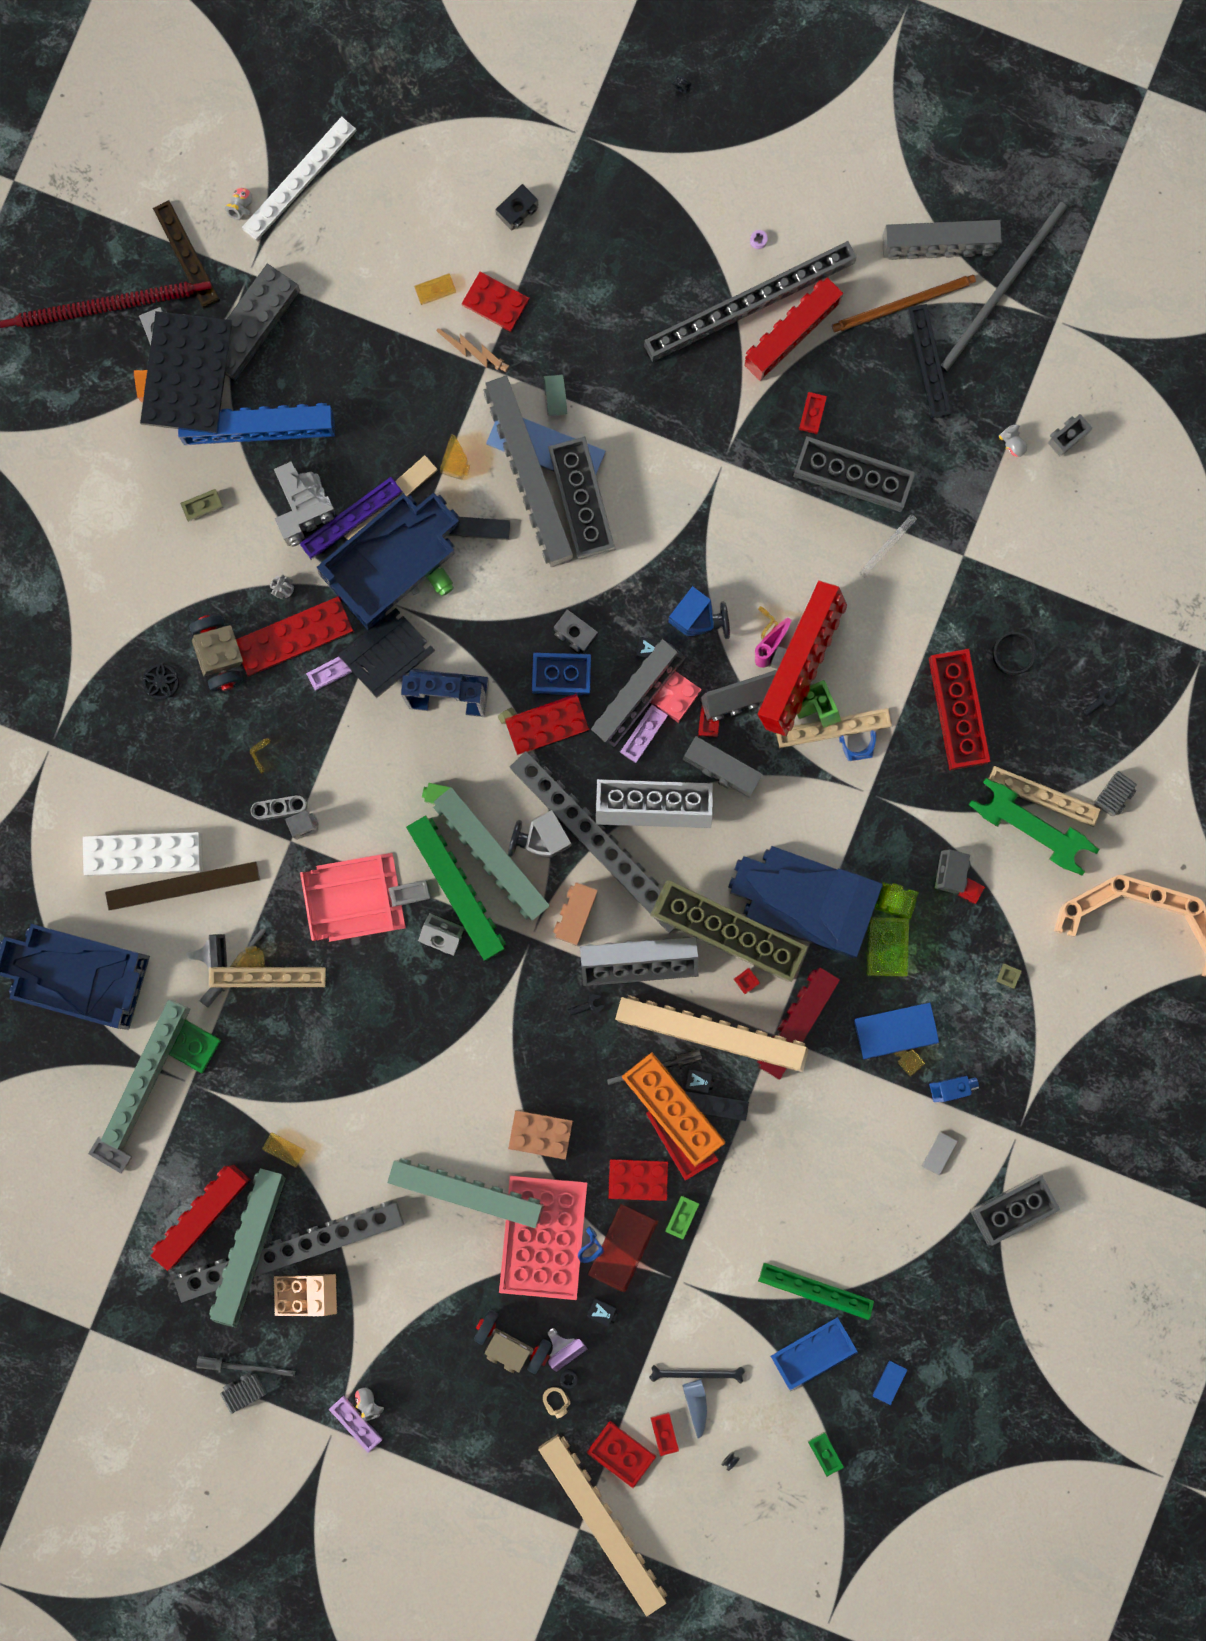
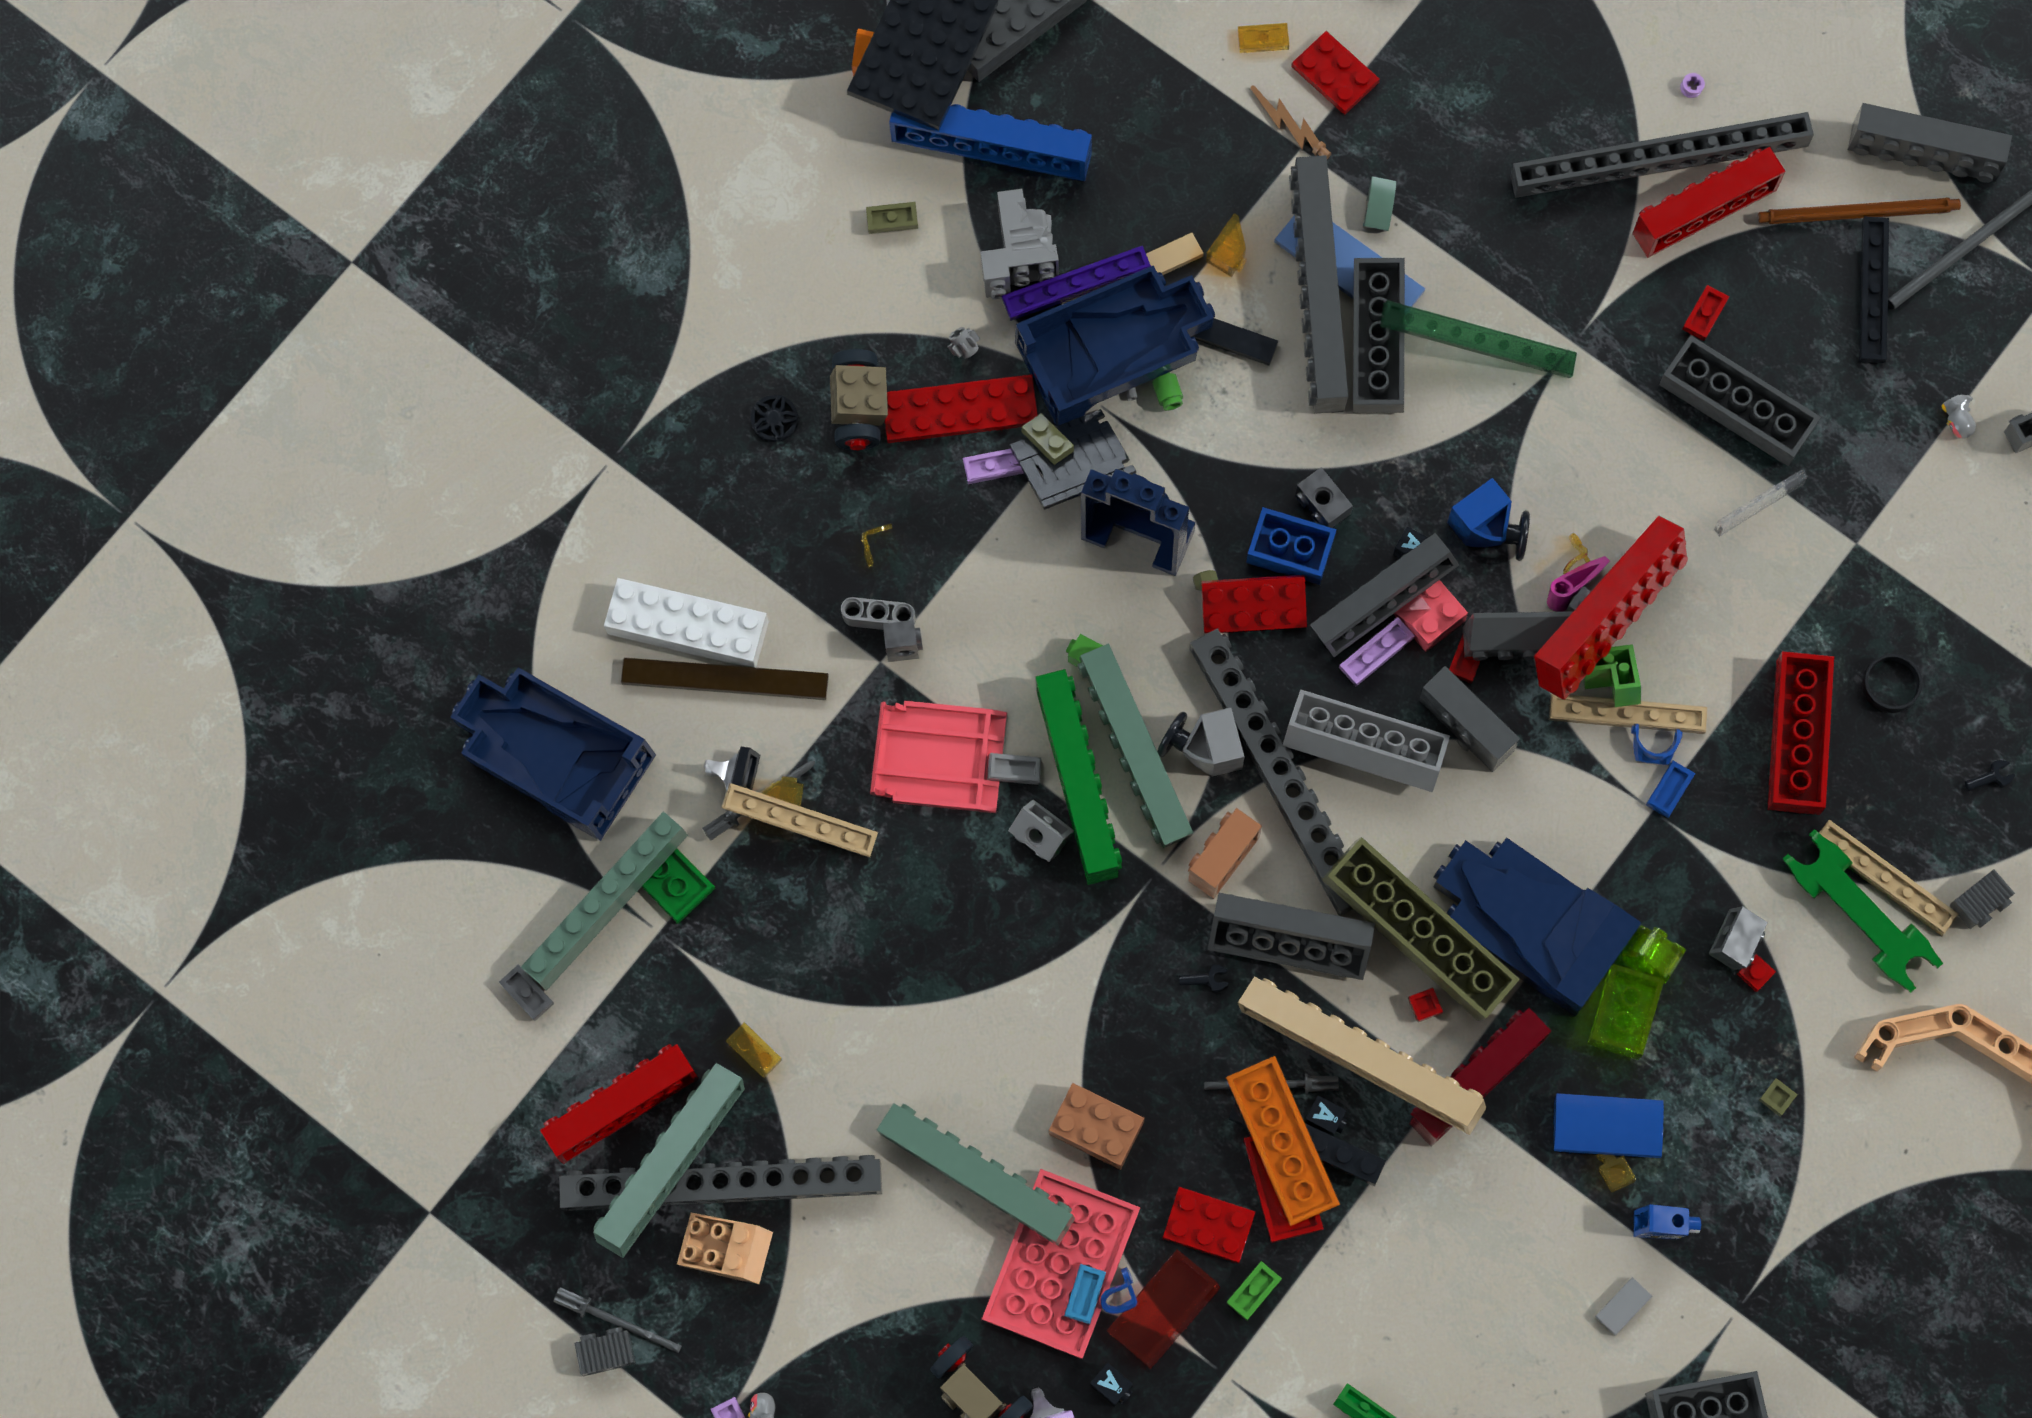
camera: 20 degrees right, 10 degrees down
(364, 643) = (1047, 438): none -> olive plate
(565, 1255) = (1085, 1294): none -> dark azure tile
(654, 481) = (1478, 339): none -> clear green tile
(877, 775) = (1670, 789): none -> blue tile

